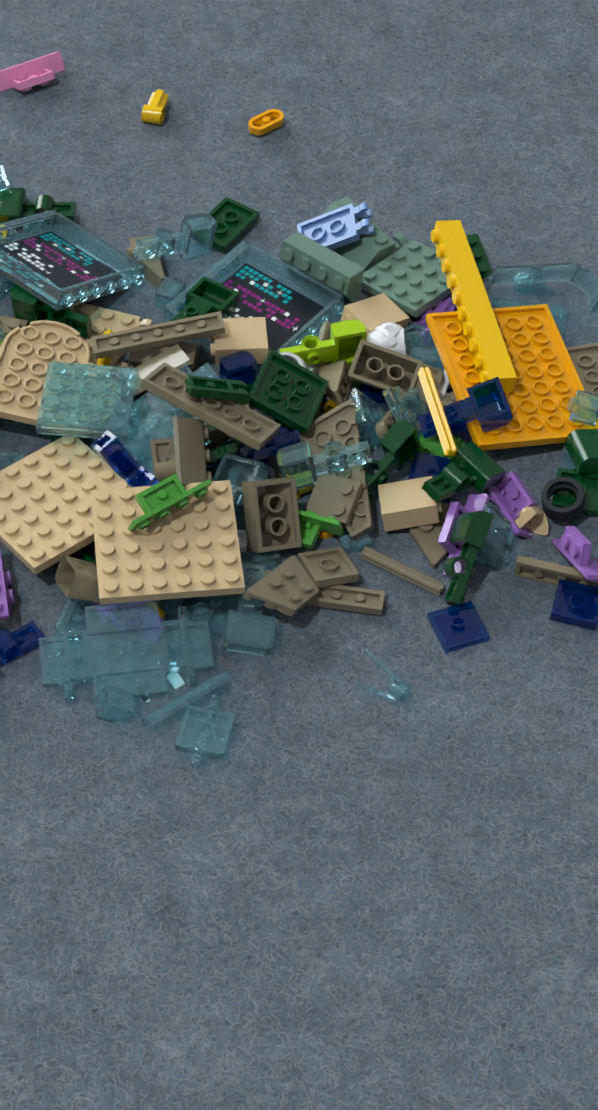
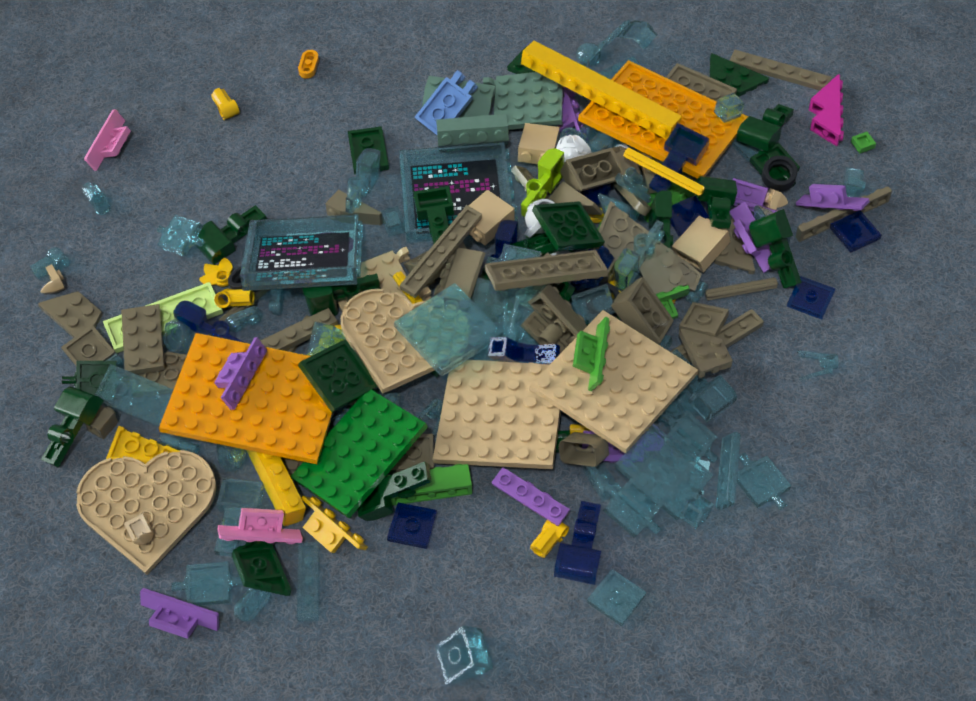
camera: 40 degrees left, 5 degrees up
(217, 388) = (541, 255): dark green plate -> none

